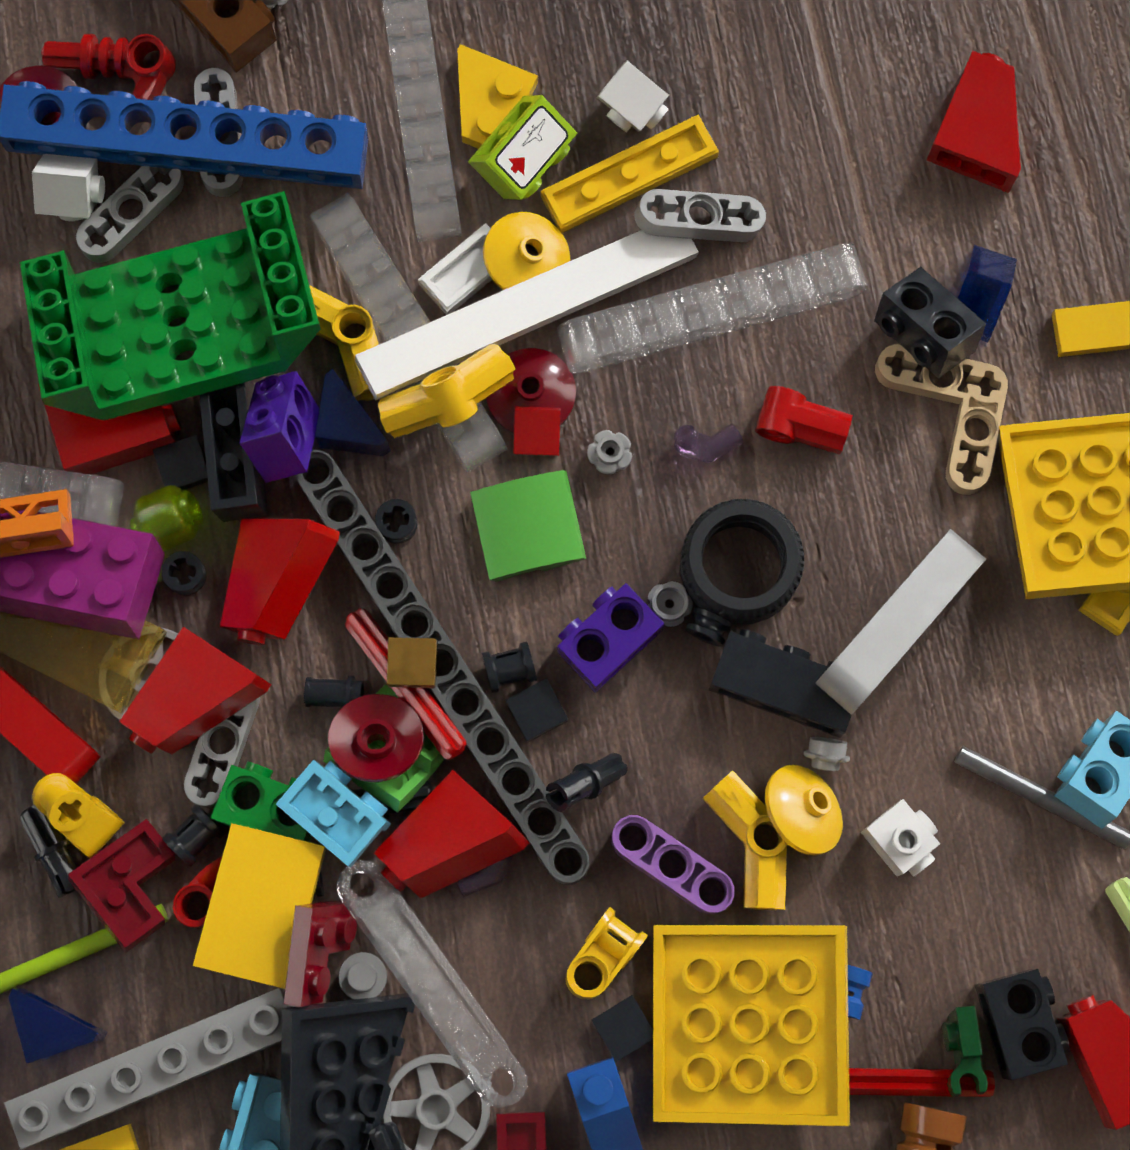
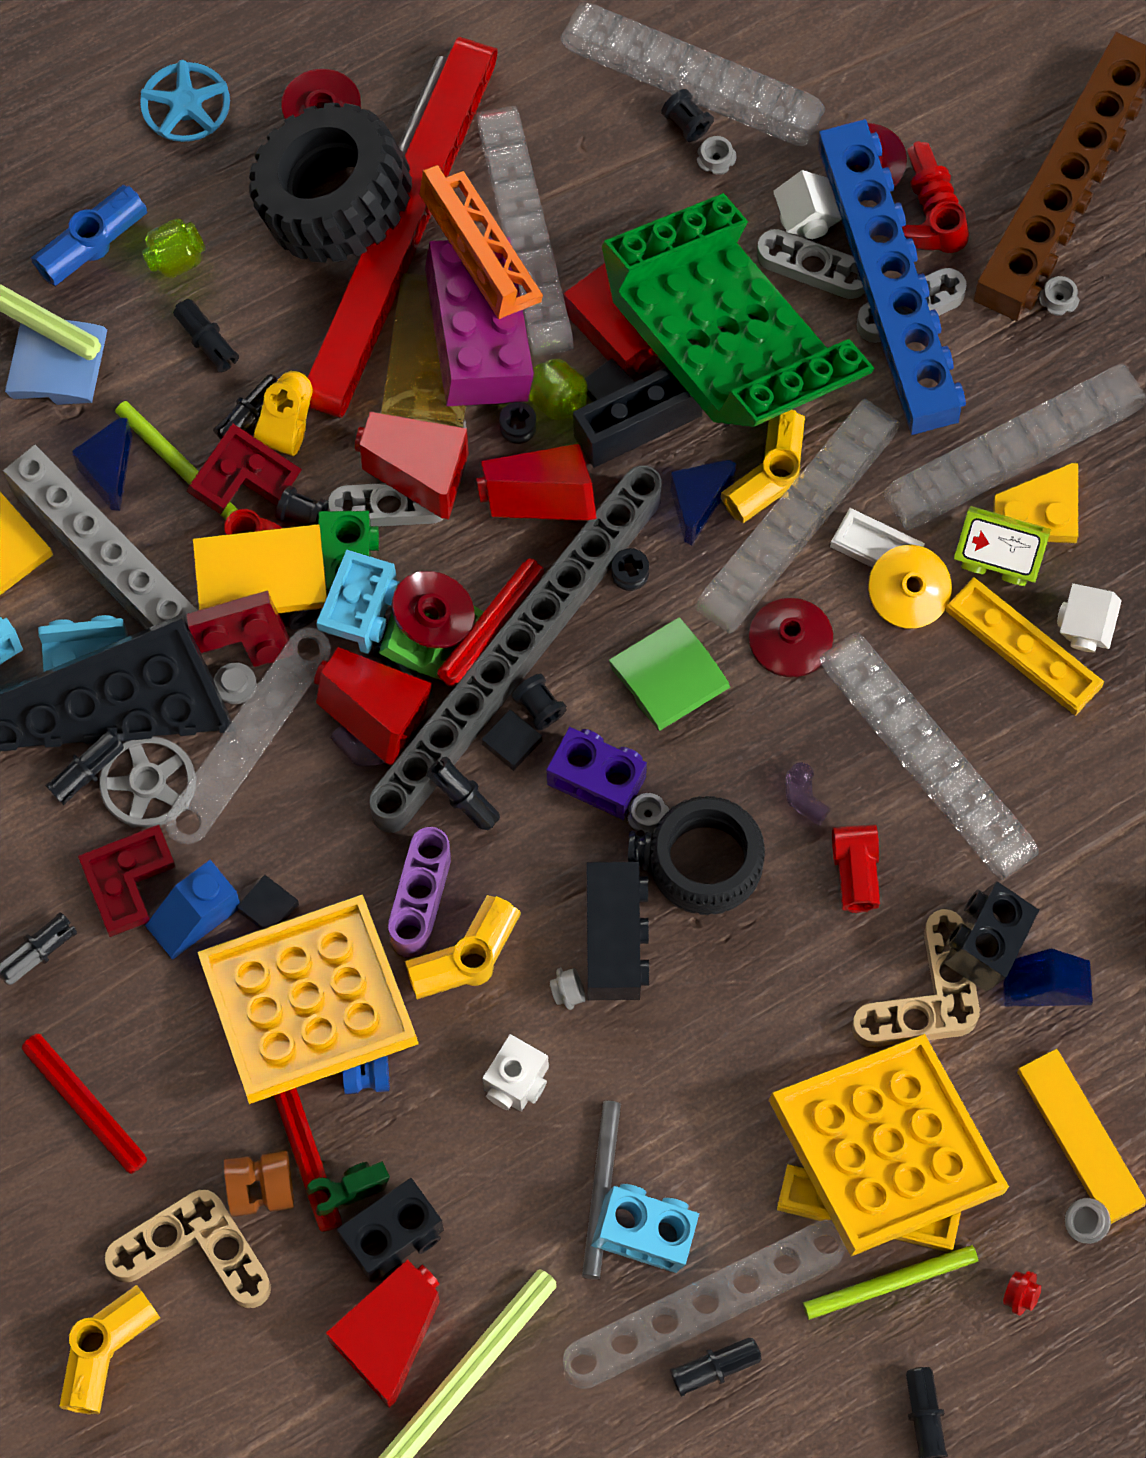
camera: 70 degrees right, 10 degrees down
(280, 426) = (666, 439): dark purple brick -> none
(331, 691) = (462, 570): black pin -> none
(411, 662) = (507, 614): pearl gold tile -> none
(447, 394) = (750, 557): yellow piece -> none
(520, 309) = (861, 600): white tile -> none
(537, 430) = (755, 650): red tile -> none
(605, 463) = (758, 727): light grey plate -> none
(605, 953) = (324, 864): yellow piece -> none
(718, 205) = (1031, 737): light grey beam -> none
(803, 810) = (493, 976): yellow dish -> none
(900, 622) = (706, 1001): beam -> none

